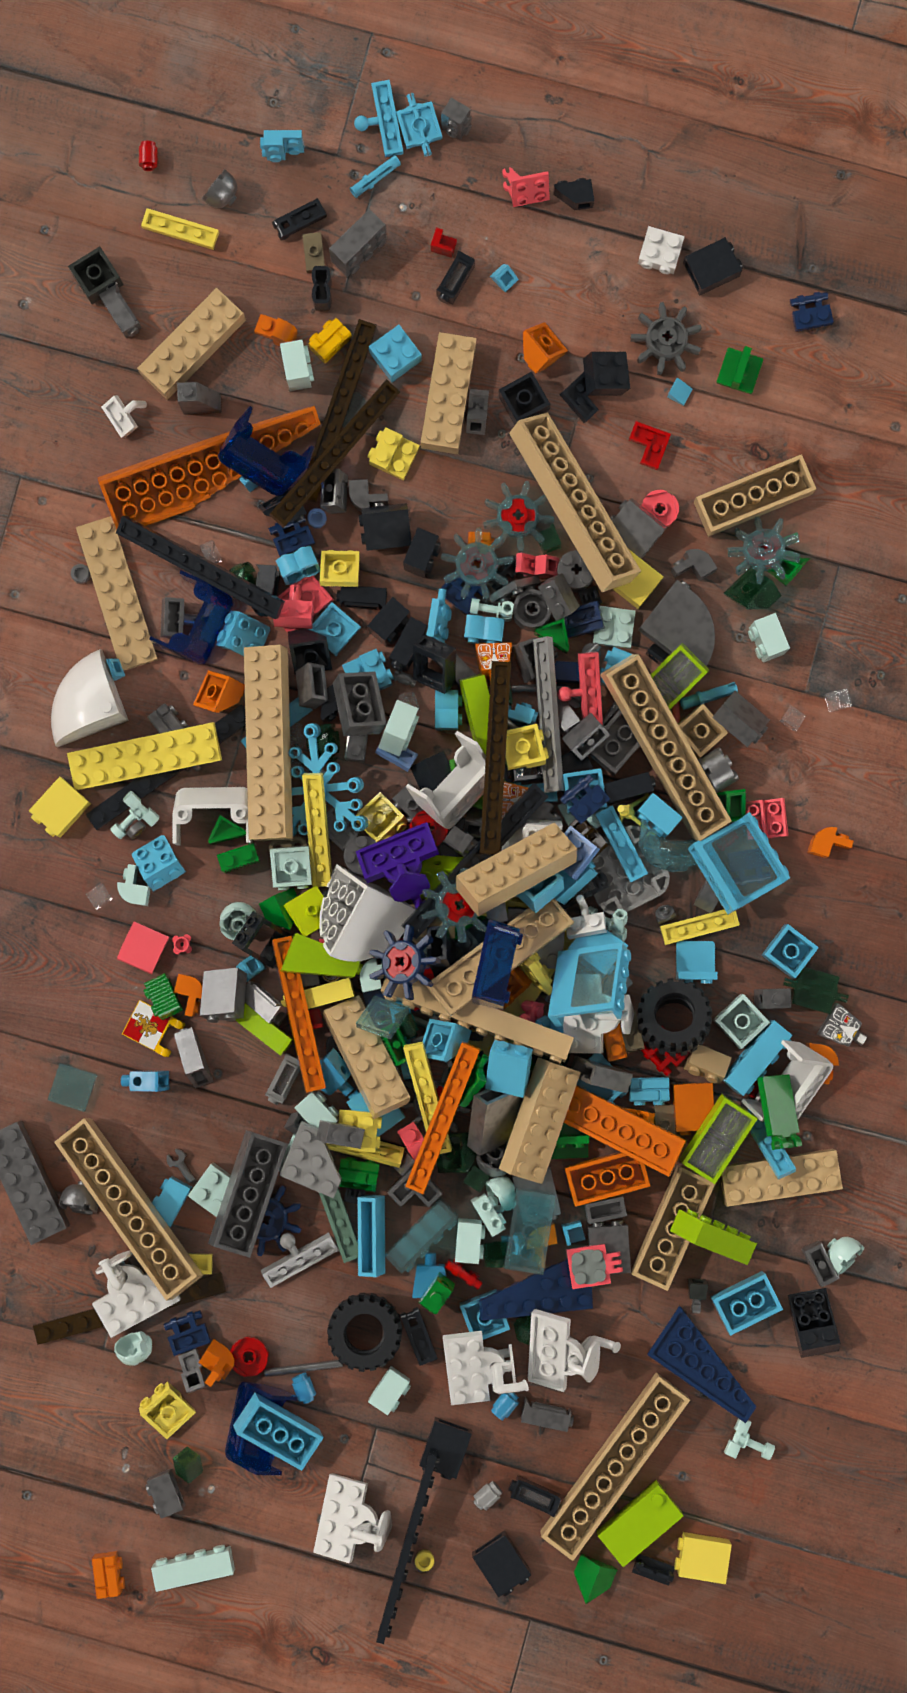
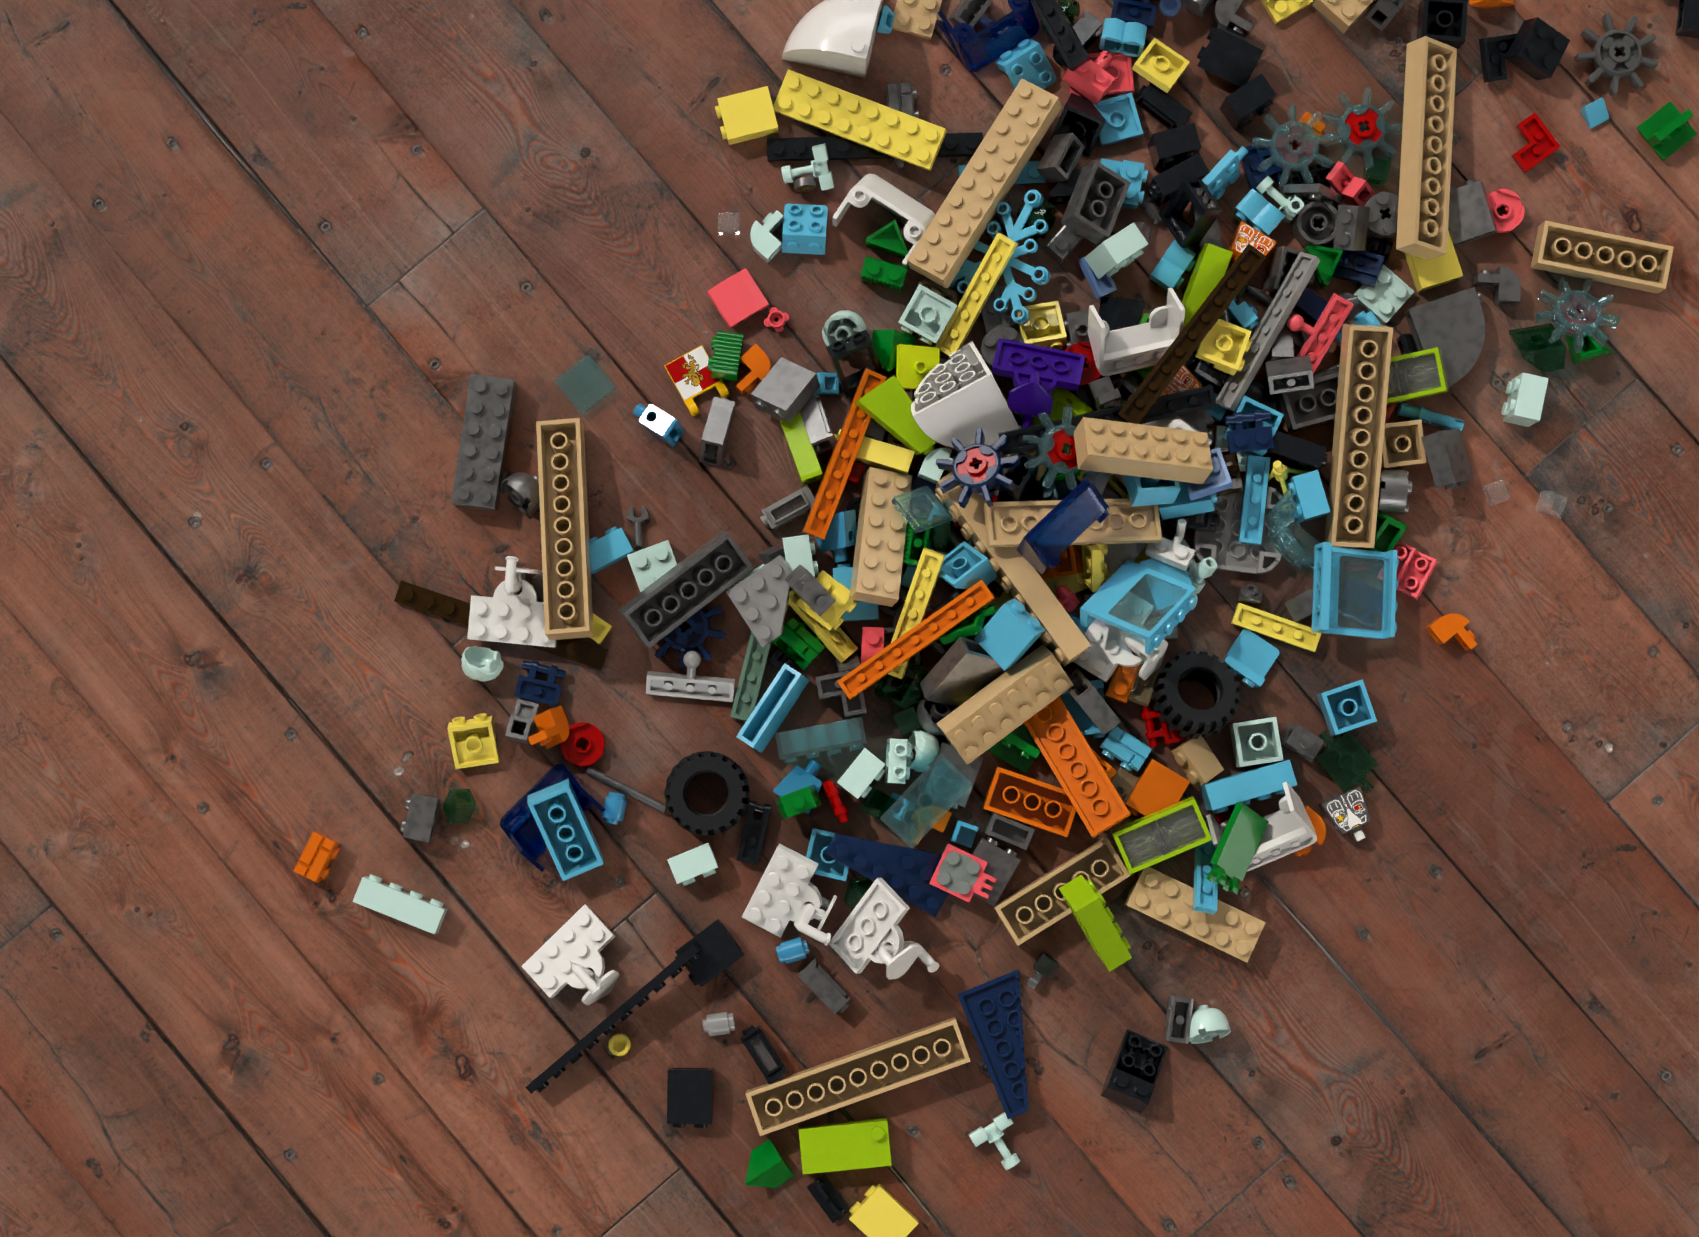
camera: 30 degrees right, 0 degrees up
(218, 692) = (969, 106): orange slope -> none
(746, 1303) = (1083, 1008): medium azure brick -> none

